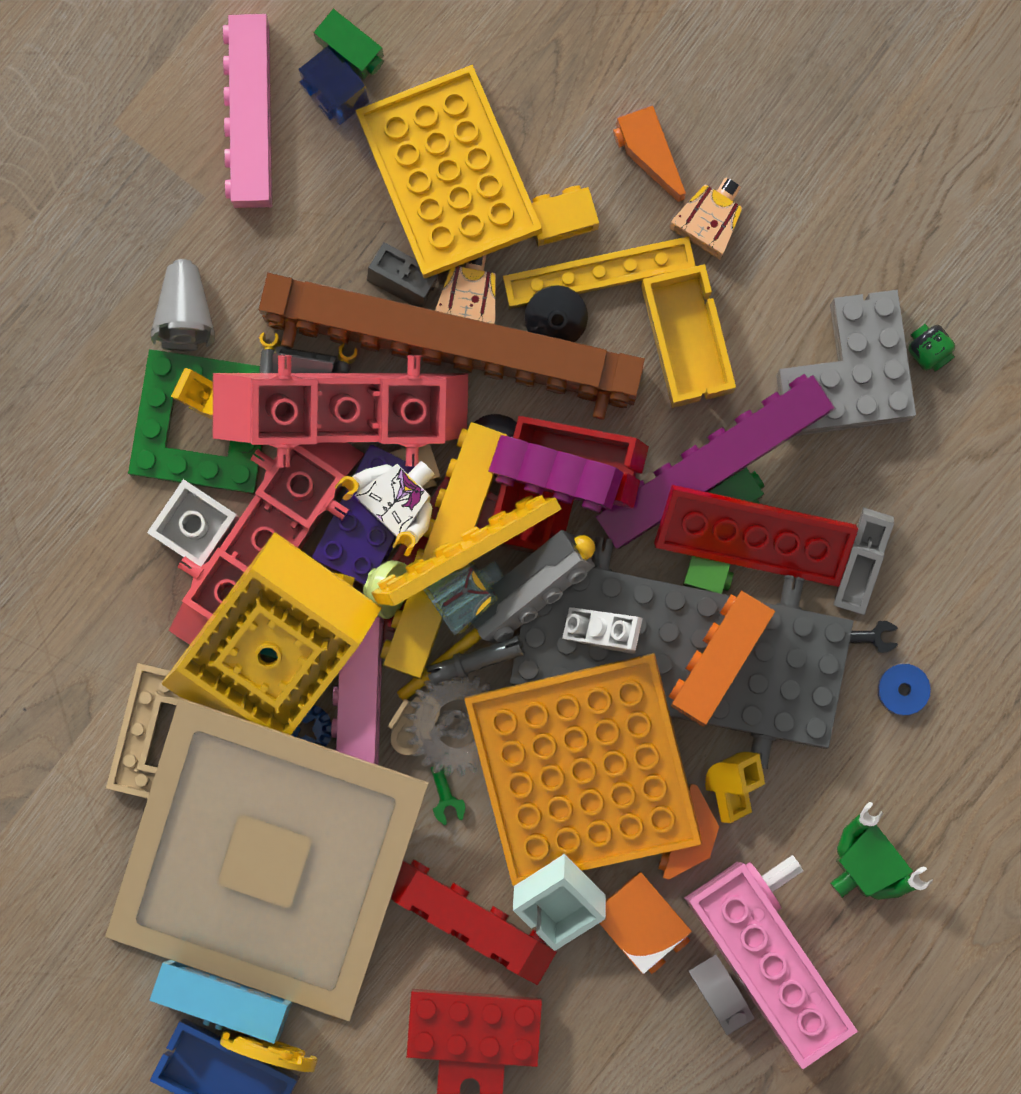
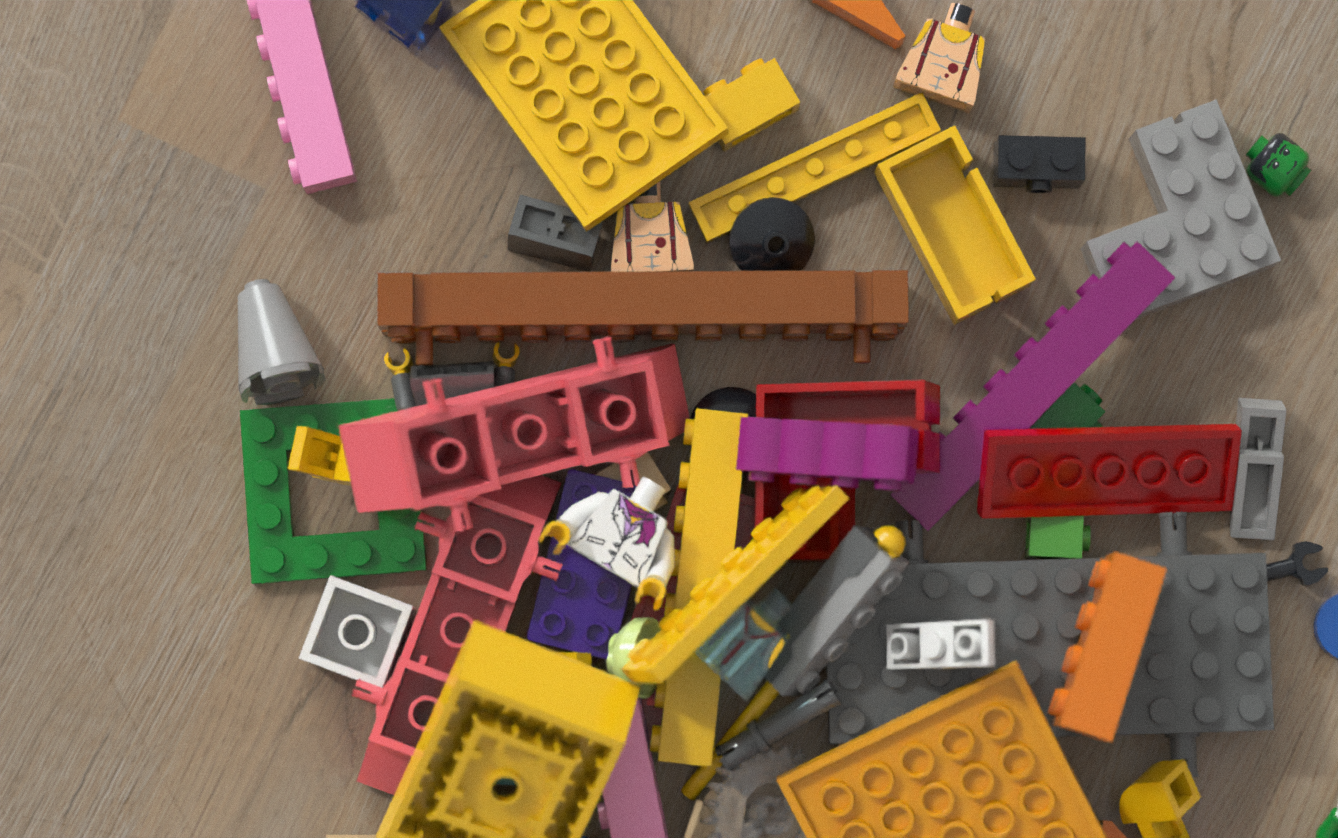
camera: 20 degrees left, 0 degrees up
(760, 306) = (1039, 162): none -> black brick

